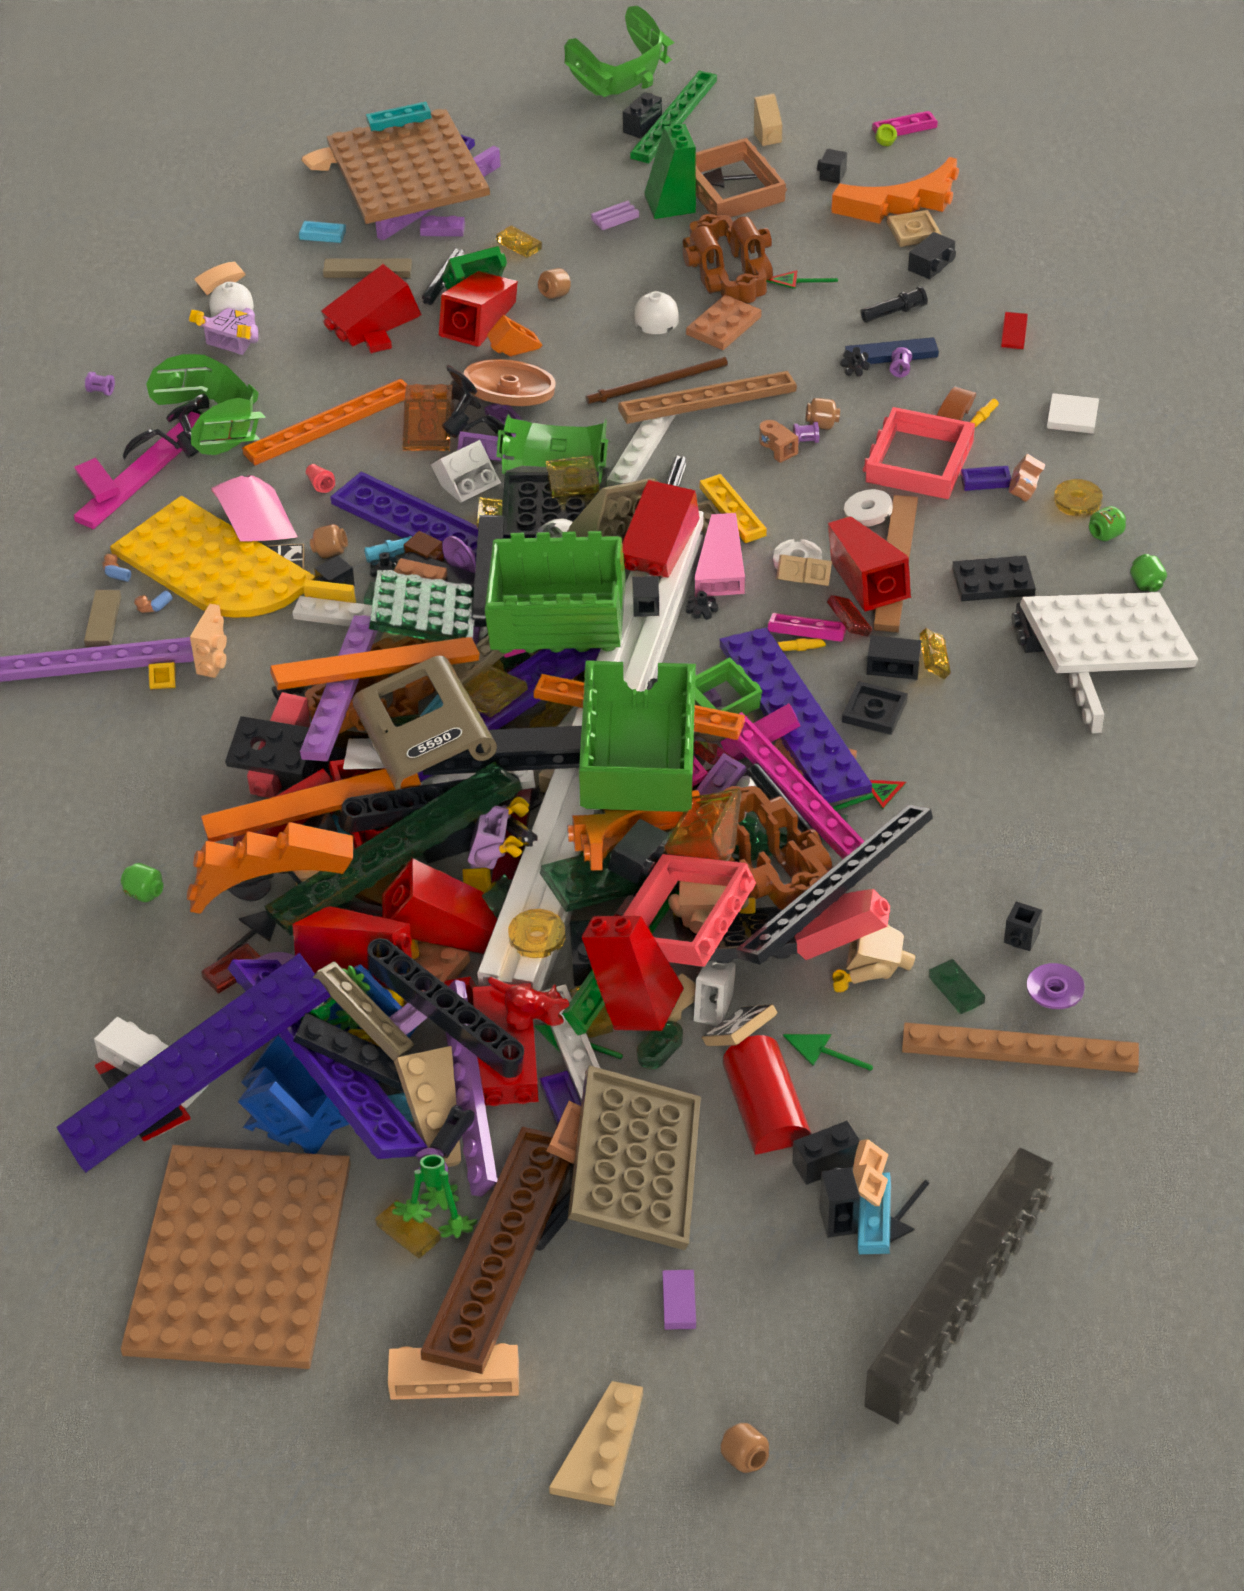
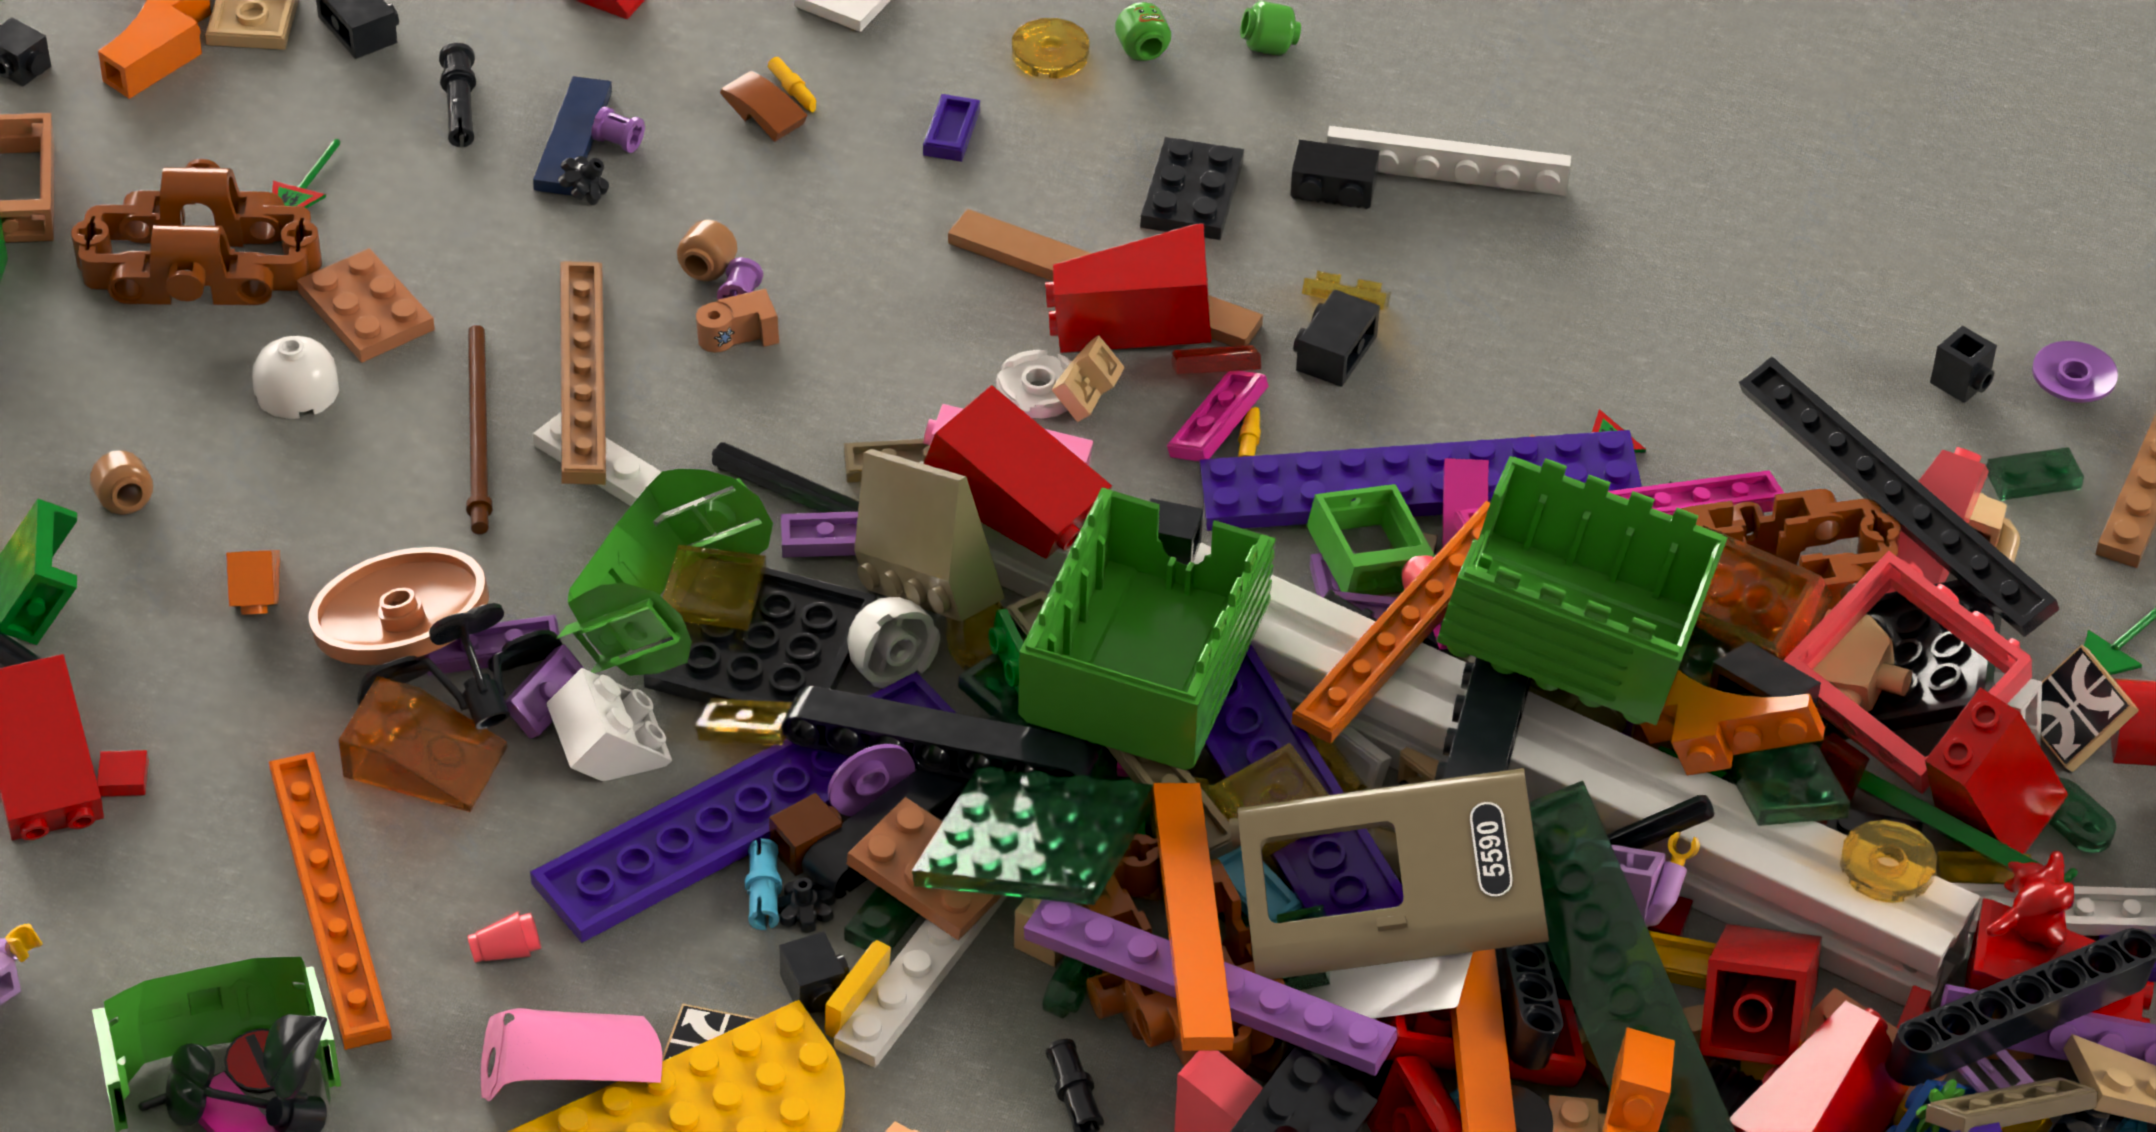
camera: 75 degrees left, 0 degrees up
(329, 541) = (708, 960): medium nougat head -> none
(475, 307) = (138, 602): red slope -> none
(497, 893) = (1715, 912): clear green plate -> none
(728, 501) = (871, 420): yellow plate -> none
(874, 708) = (1438, 391): black plate -> none
(878, 502) = (964, 249): white tile -> none
(923, 425) = (886, 130): coral window -> none
(1025, 477) = (993, 83): nougat leg -> none
(1108, 632) = (1393, 101): white plate -> none

